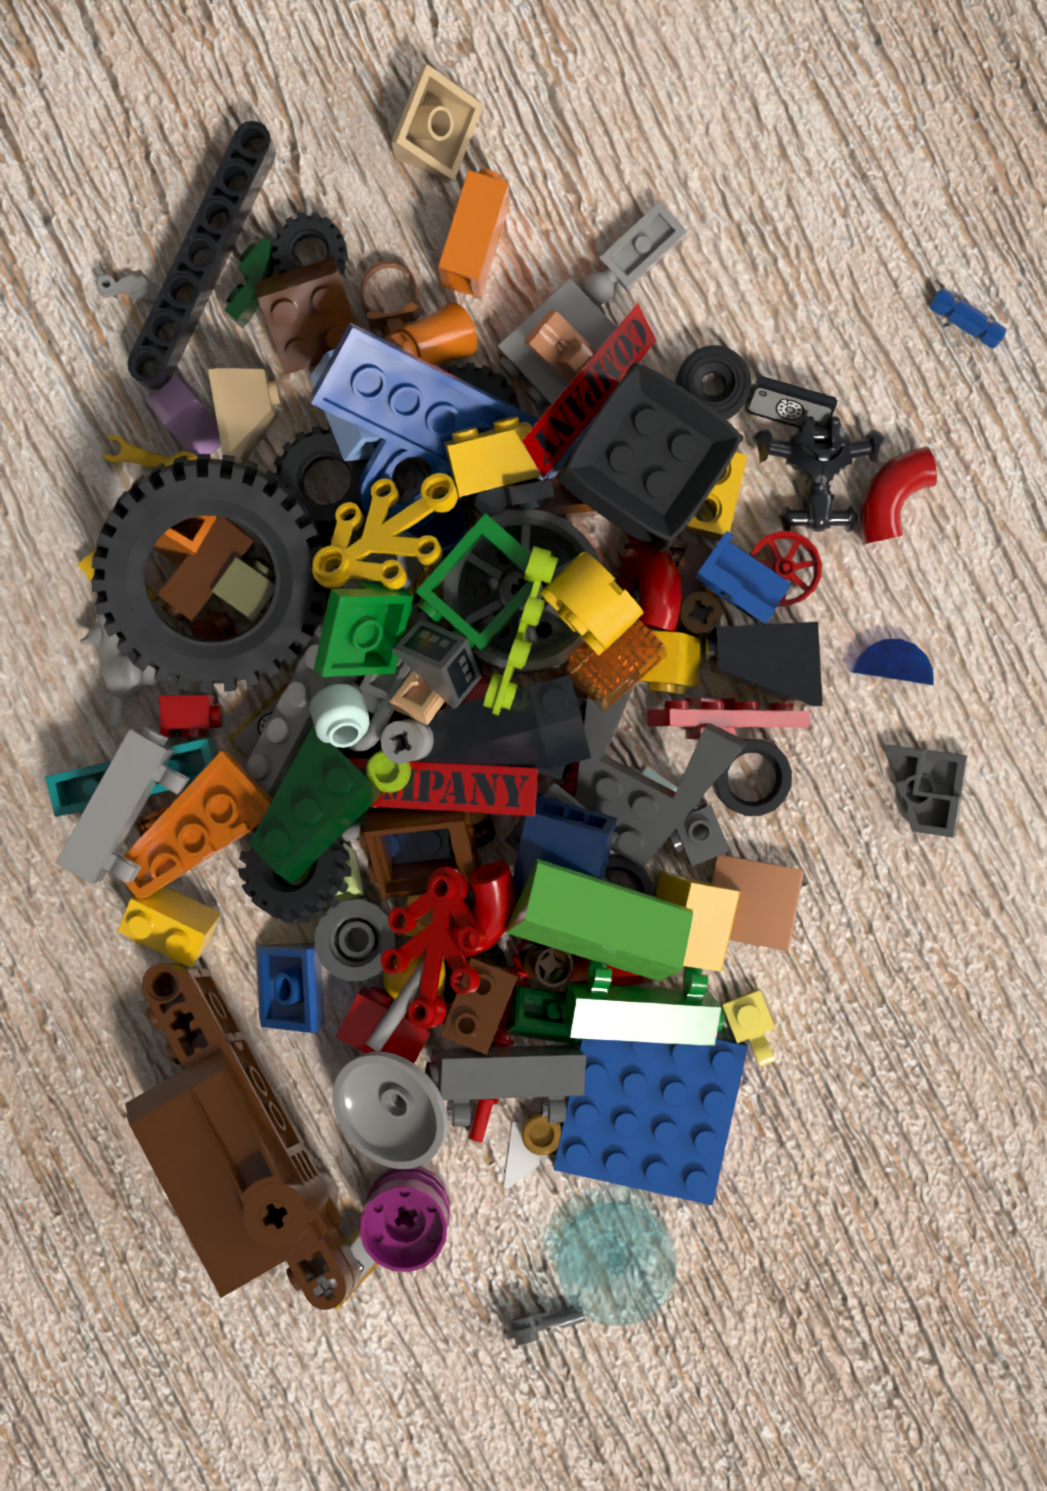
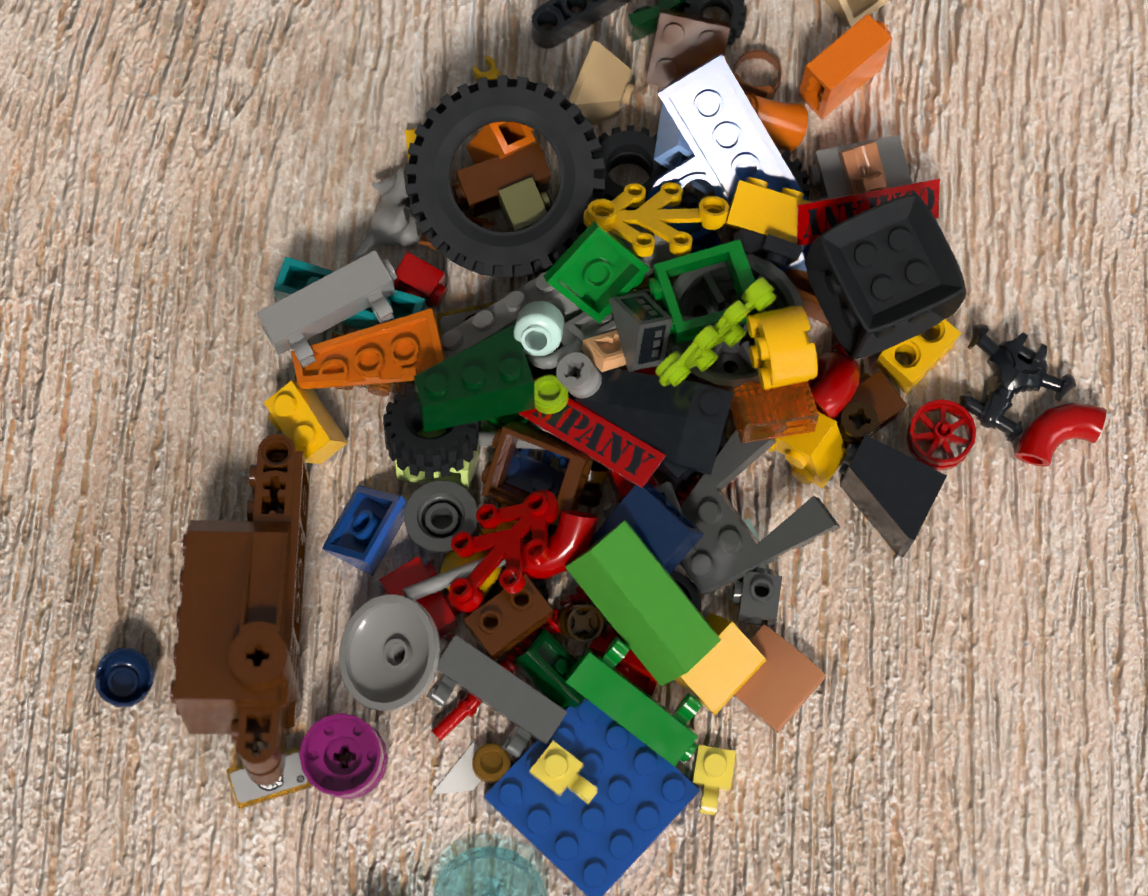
camera: 25 degrees right, 15 degrees down
(156, 1262) = (124, 677): none -> dark blue hair
(186, 417) = (552, 67): lavender slope -> none
(609, 1112) = (560, 771): none -> light yellow plate
(634, 253) = (958, 149): light grey plate -> none
(726, 364) = (984, 269): black tyre -> none
(726, 715) = (871, 541): plate -> none
(742, 580) = (902, 412): blue panel -> none
(773, 799) = (828, 551): black tyre -> none
(789, 403) = (1013, 316): slope -> none
(895, 661) = (990, 558): clear blue tile -> none
(930, 787) = (964, 672): dark grey slope -> none

